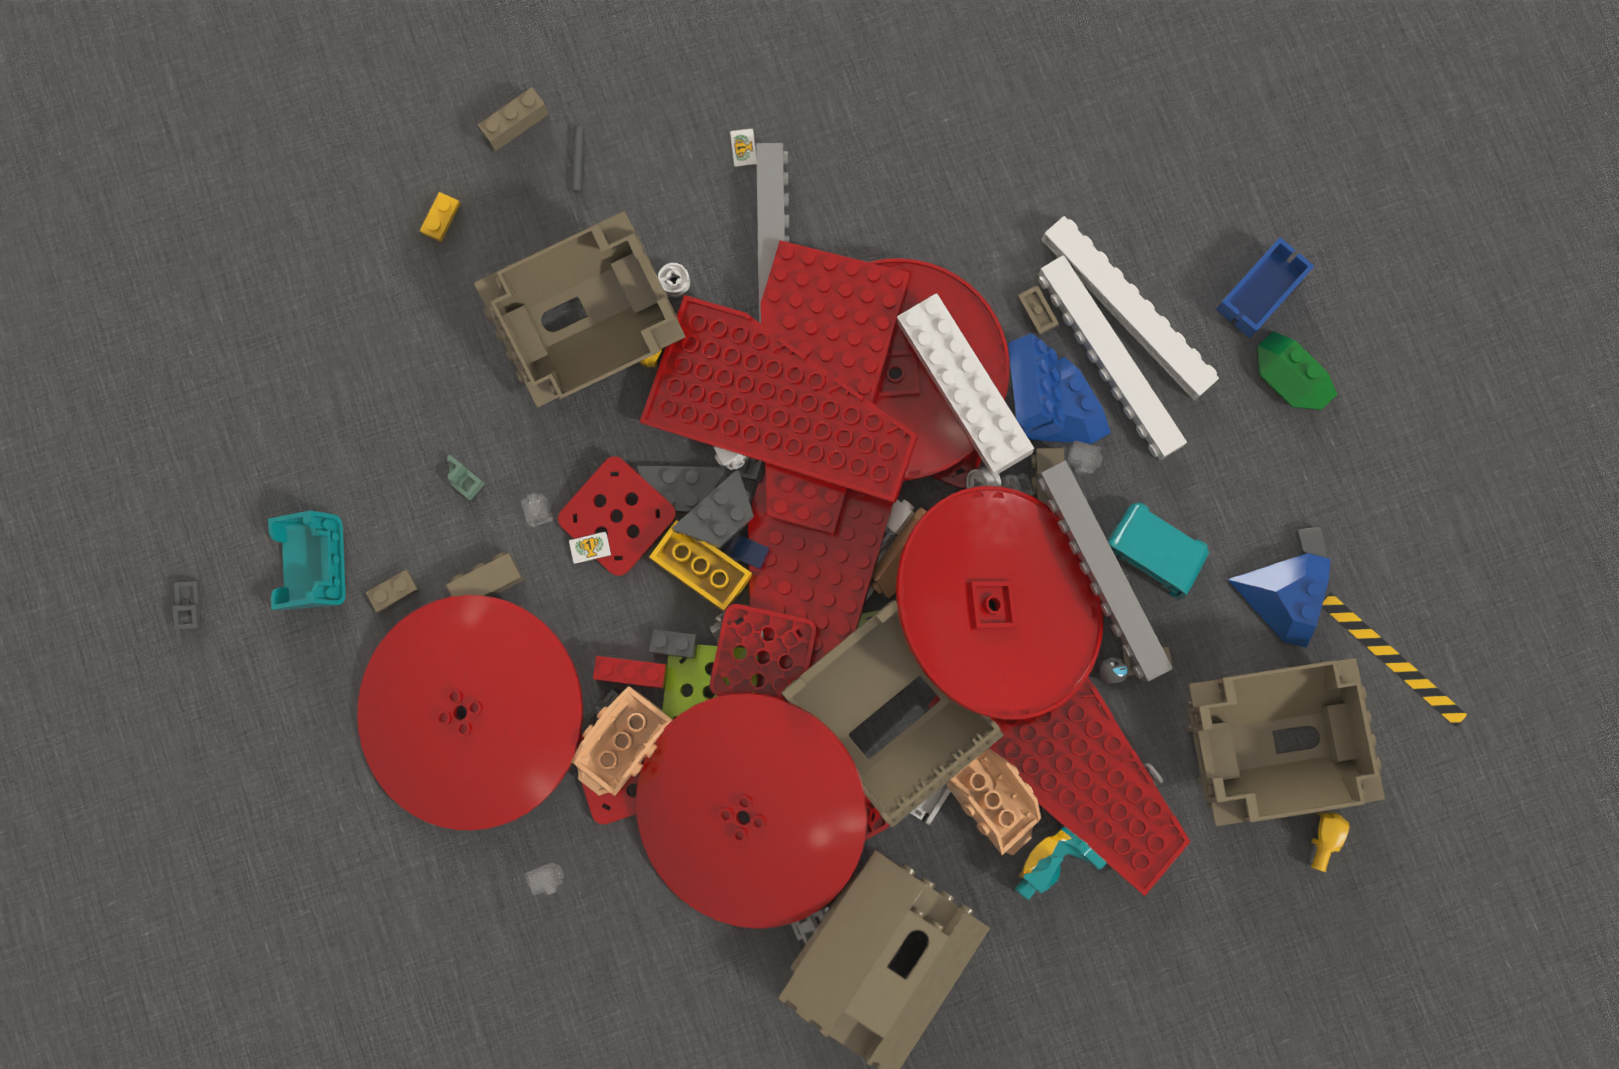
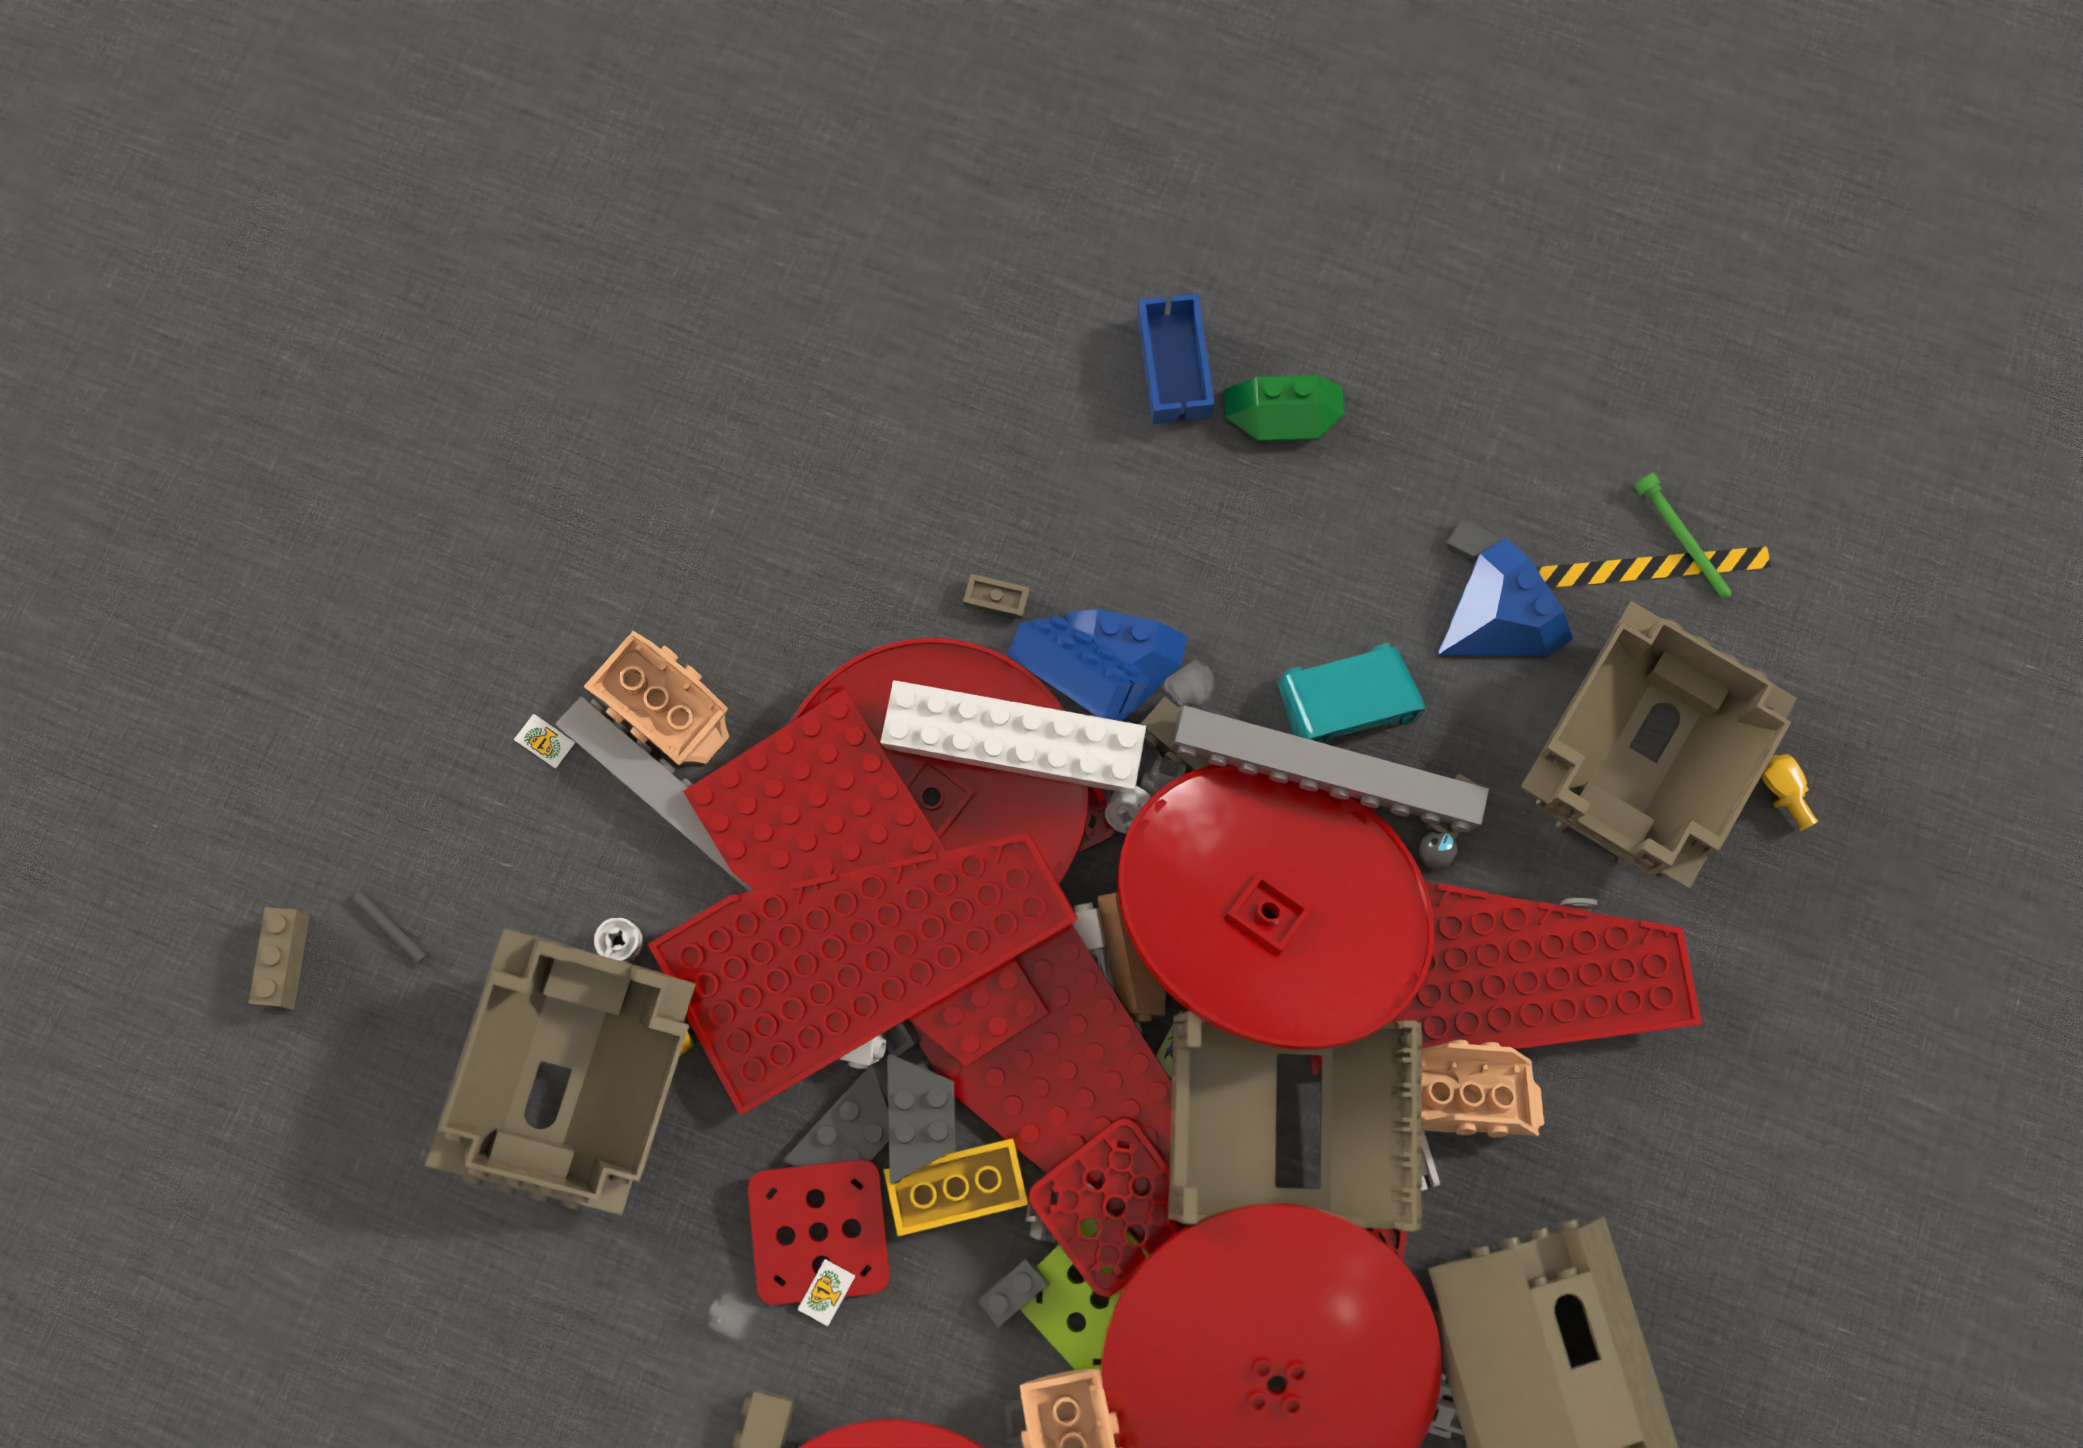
camera: 50 degrees left, 5 degrees down
(440, 217) = (308, 1136): yellow plate -> none
(463, 479) = (623, 1370): sand green slope -> none
(630, 672) = (1003, 1369): red brick -> none
(746, 551) = (982, 1122): dark blue slope -> none
(817, 186) = (661, 700): none -> light nougat slope
(1043, 863) = (1582, 1100): teal hips -> none
(1111, 358) = (1111, 567): white brick -> none
(1130, 308) = (1076, 504): white brick -> none
(1438, 618) = (1651, 489): none -> bright green piece

